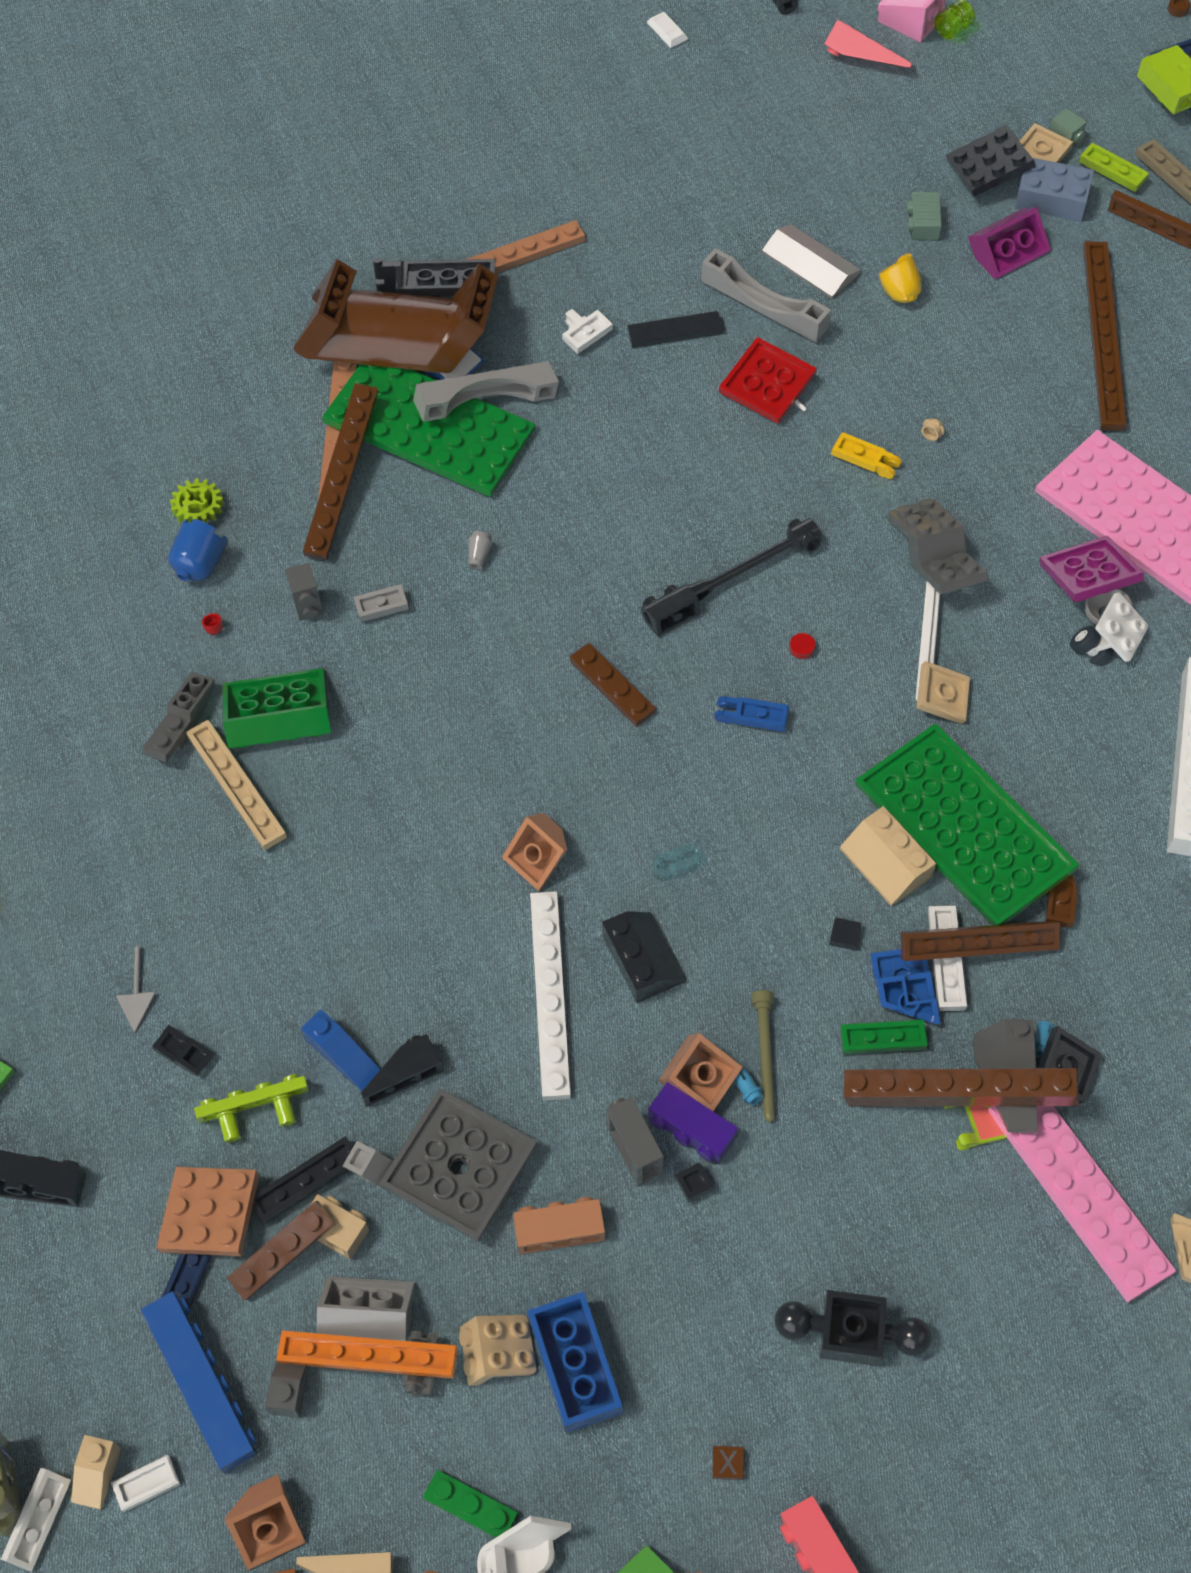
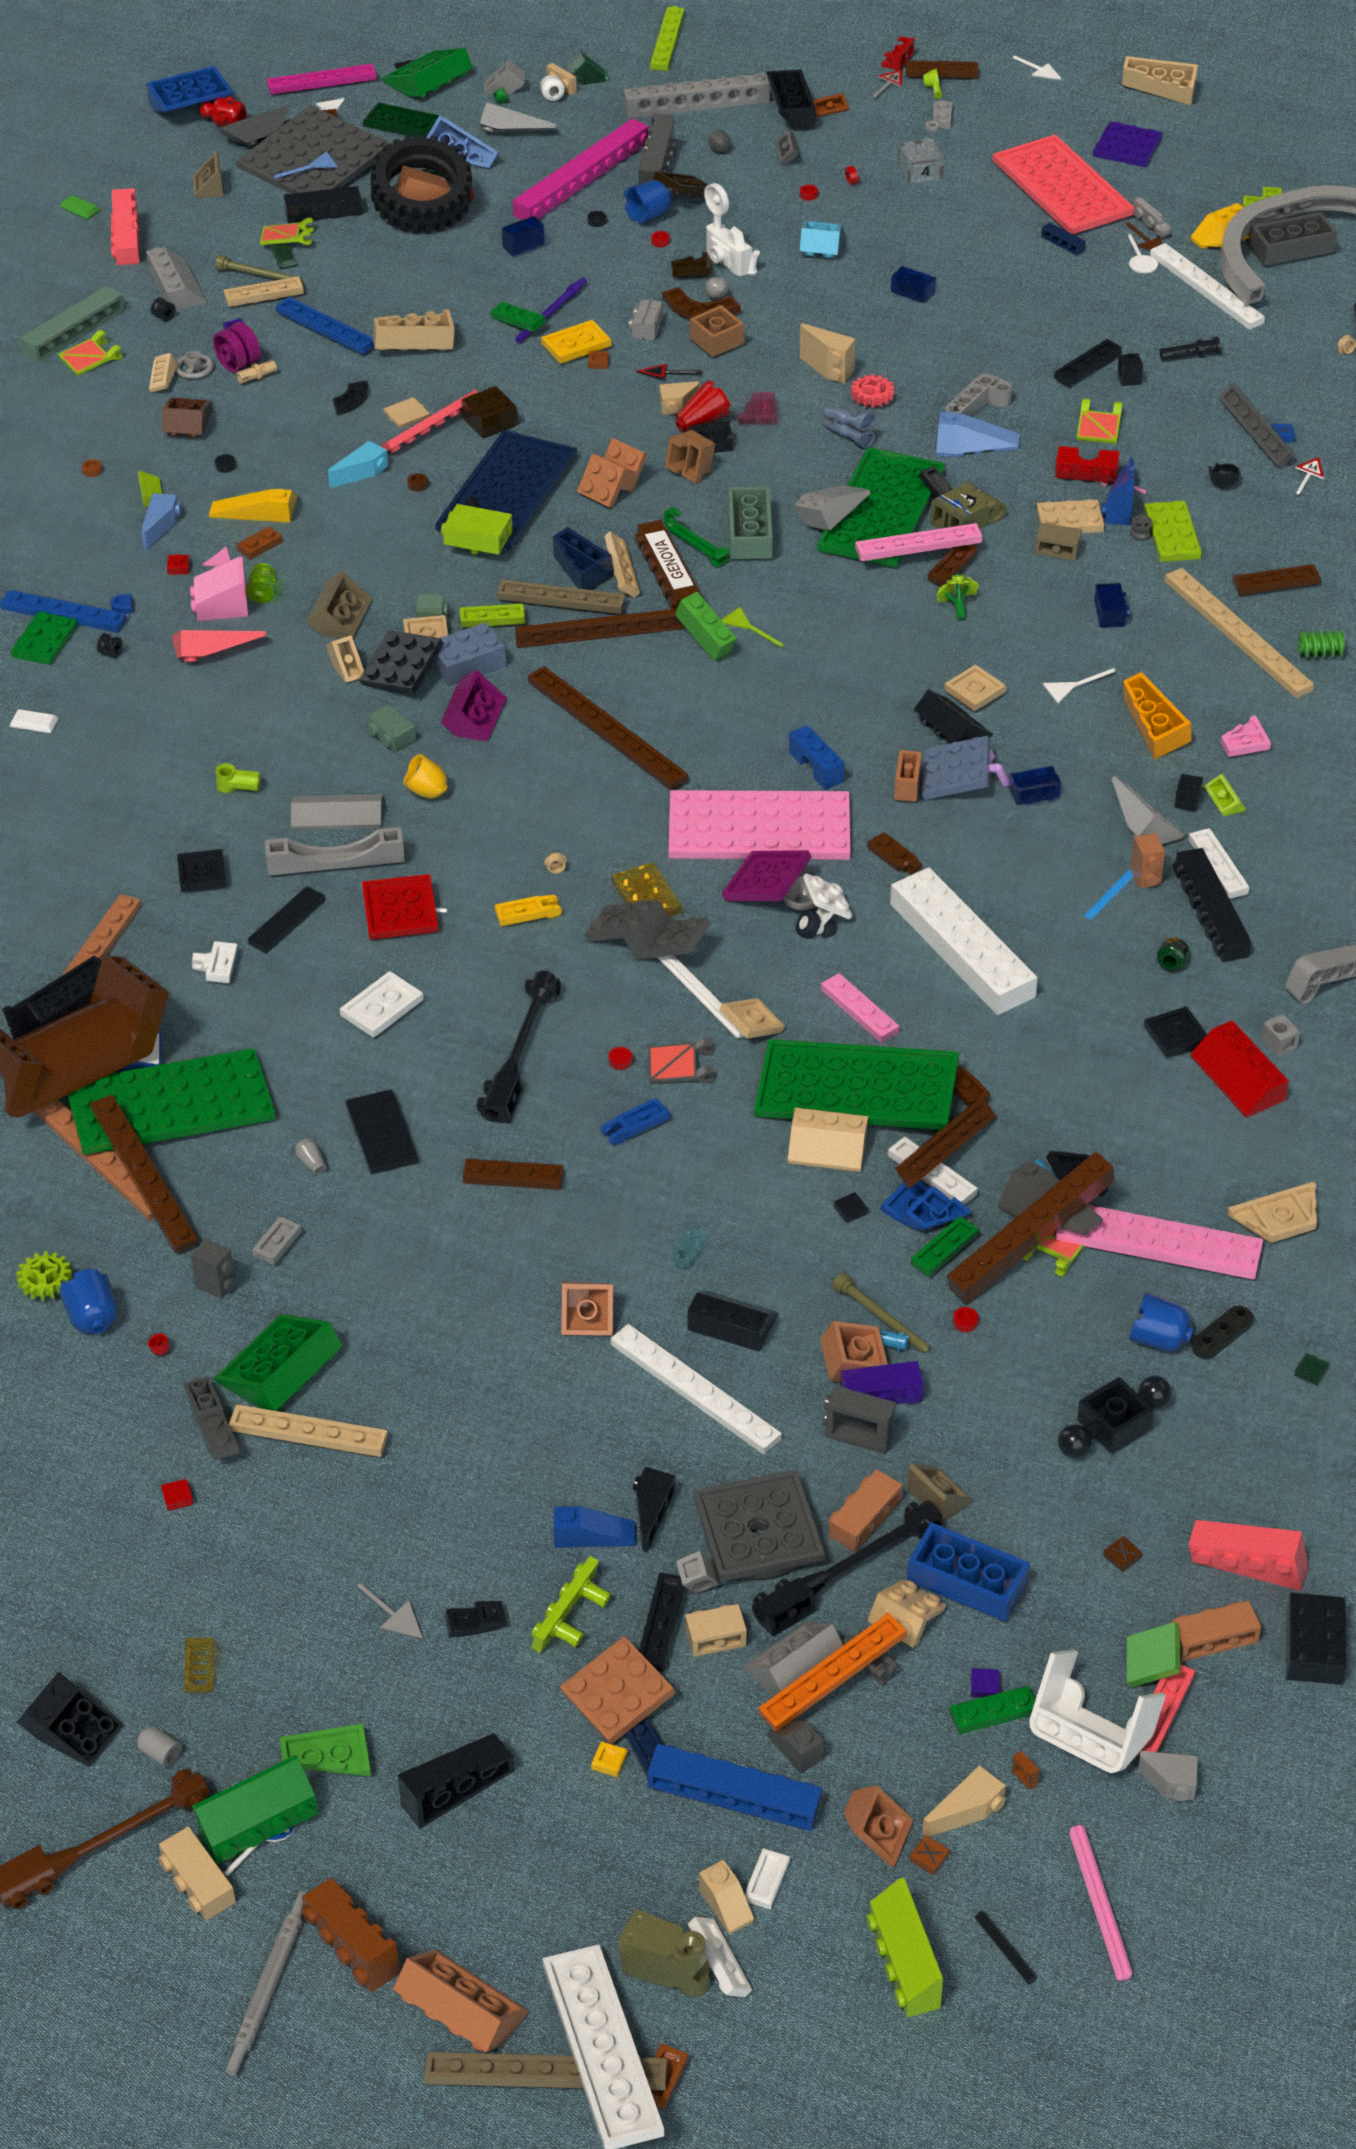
camera: 45 degrees left, 15 degrees down
(99, 760) = (176, 1494): none -> red tile
(148, 1263) = (609, 1759): none -> yellow tile
(281, 1250) = (699, 1667): reddish brown plate -> none
(423, 1253) = (796, 1598): none -> black bar
(489, 1474) = (984, 1682): none -> dark purple tile
(529, 382) = (219, 1021): light grey arch -> none
(553, 568) = (381, 1131): none -> black tile
(639, 1261) = (934, 1485): none -> dark tan slope
(654, 241) = (201, 870): none -> black plate
(666, 456) = (381, 1004): none -> white plate
(694, 1182) = (921, 1419): black plate -> none
(757, 178) = (230, 779): none -> lime piece
(831, 1120) = (965, 1319): none -> red tile
(842, 684) = (679, 1062): none -> flag
(952, 129) = (345, 658): none -> tan slope
(980, 508) = (645, 884): none -> clear yellow plate
(985, 1276) = (1162, 1324): none -> blue cylinder
(994, 81) = (339, 607): none -> dark tan slope
(1030, 1333) = (1235, 1321): none -> pearl dark grey plate
(1049, 752) = (860, 1008): none -> bright pink plate
(1086, 1438) = (1311, 1369): none -> clear green tile

